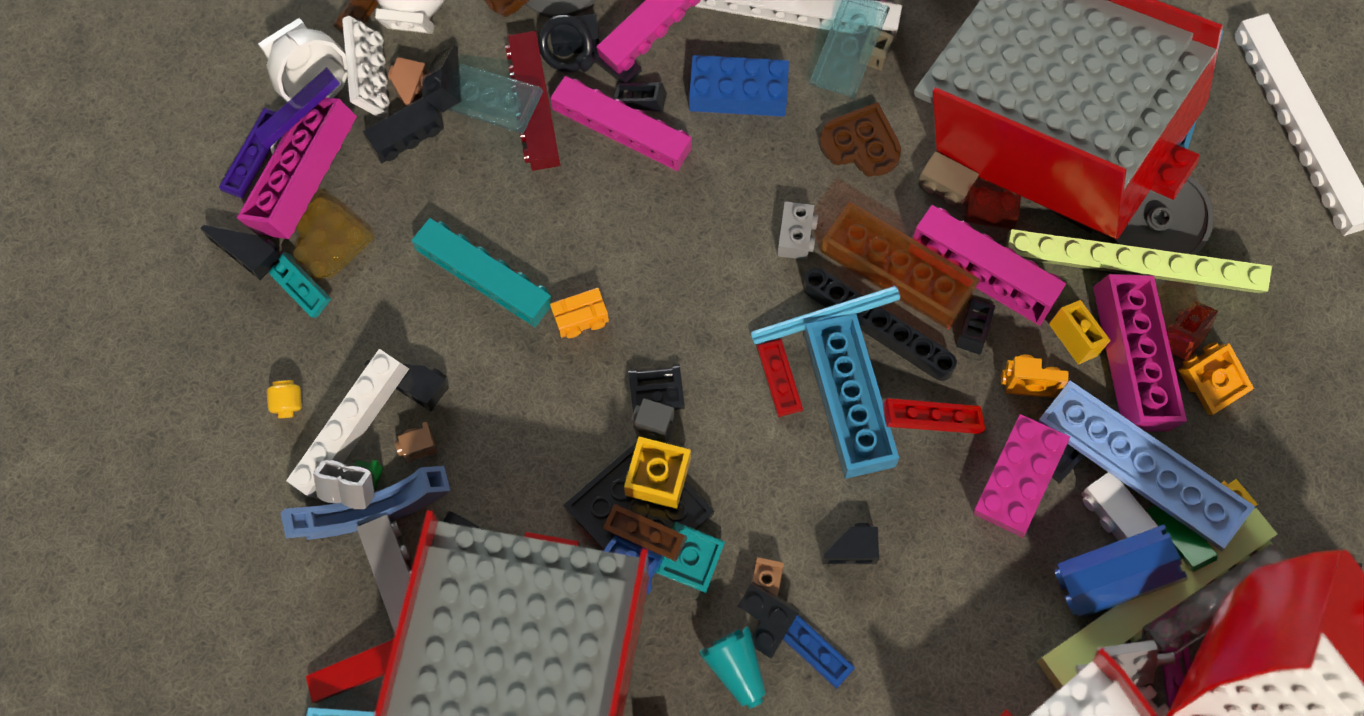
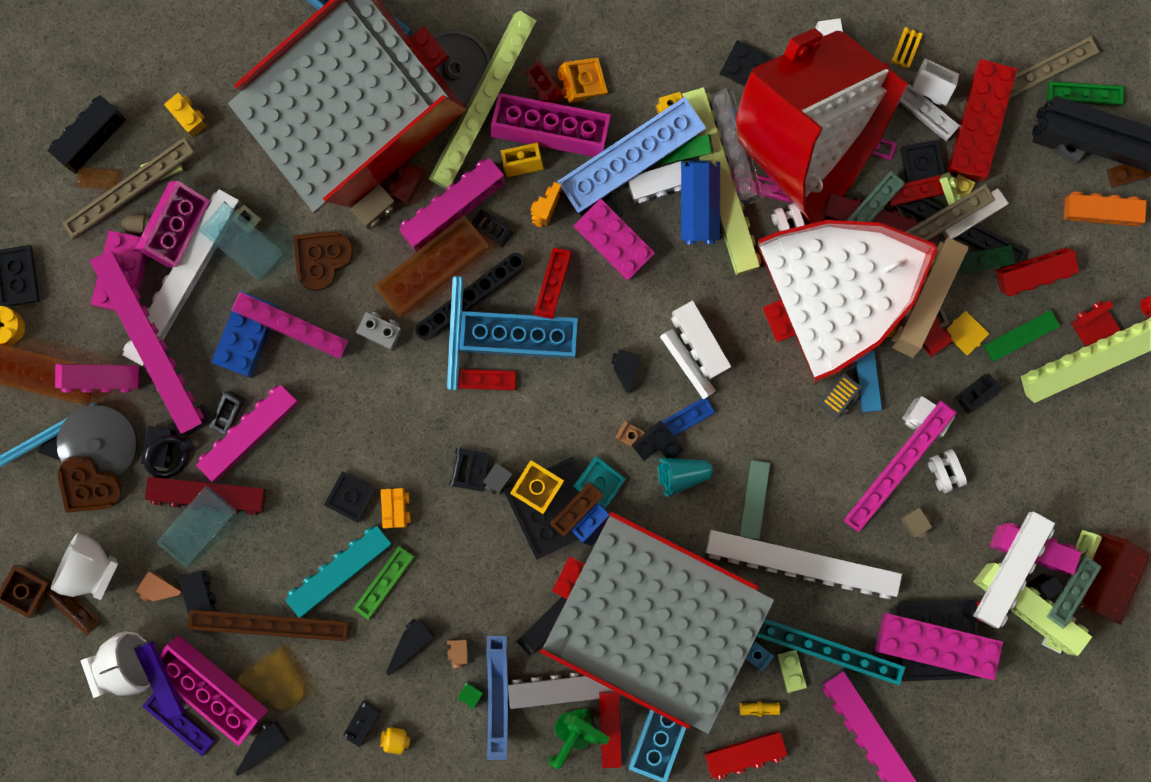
camera: 75 degrees left, 15 degrees up
(297, 355) = (361, 723): none -> black hinge
(299, 285) = (306, 710): teal plate -> none
(343, 484) = (479, 711): light grey brick -> none
(348, 625) = (576, 731): none -> green plate
(350, 419) = (432, 697): white brick -> none
(365, 67) = (136, 618): white tile -> none
(393, 210) = (267, 625): none -> reddish brown plate
(442, 80) = (166, 560): black slope -> none
(483, 330) = (384, 582): none -> bright green tile
(578, 259) = (350, 497): none -> black plate
(766, 121) = (289, 325): none -> dark pink brick
(890, 629) = (687, 363): none -> white tile
(928, 635) = (701, 340): none -> white brick
(1137, 660) = (760, 220): light grey plate -> none

